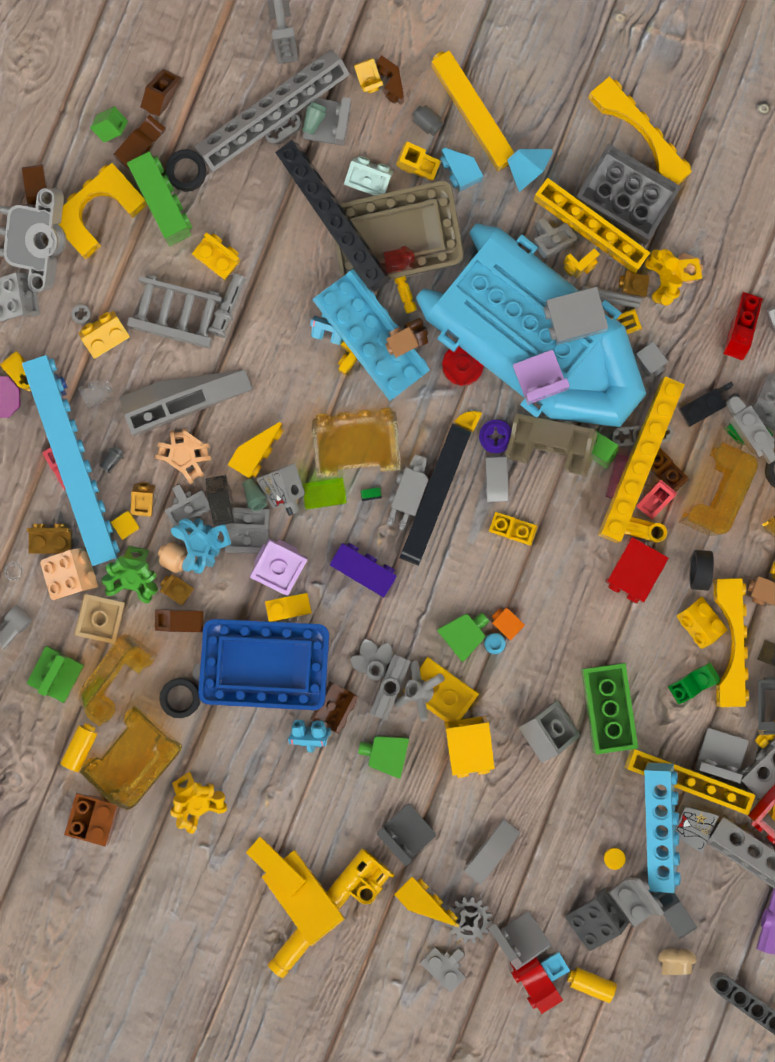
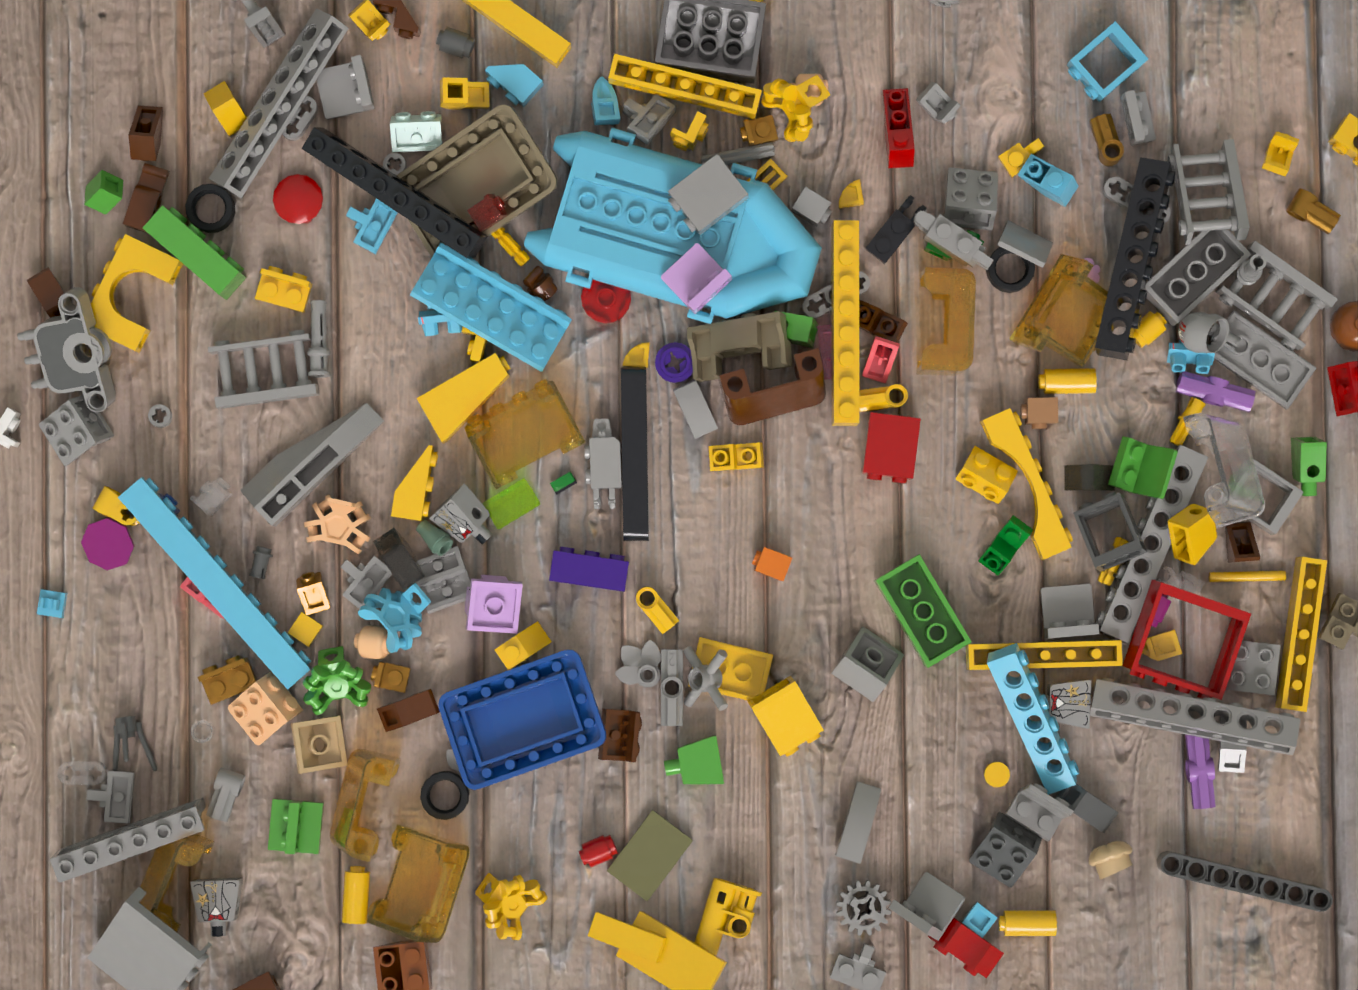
camera: 20 degrees left, 0 degrees up
(103, 334) = (193, 427): yellow bracket -> none
(229, 98) = (226, 108): none -> yellow slope
(256, 191) = (298, 199): none -> red dish
(281, 790) = (598, 850): none -> red brick
(305, 234) = (372, 225): none -> medium azure hinge
(309, 736) = (606, 778): medium azure hips -> none
(314, 116) = (328, 92): sand green cone -> none
(319, 394) = (462, 395): none -> yellow slope
(319, 810) = (649, 855): none -> olive tile
(346, 190) = (396, 157): none -> light grey bush
(401, 341) = (527, 301): medium nougat brick -> none
(403, 623) = (657, 611): none -> yellow piece
(406, 834) = (756, 841): dark grey bracket -> none
(420, 901) = (802, 909): yellow slope -> none
(464, 634) = (729, 595): bright green torso -> none
(494, 643) = (767, 591): medium azure tile -> none
(523, 214) = (604, 104): none -> medium azure plate
(528, 165) = (587, 48): medium azure slope -> none
(539, 494) = (750, 407): none -> reddish brown windscreen
(685, 363) = (851, 195): none -> yellow tile
(701, 570) = (962, 417): black tyre -> none

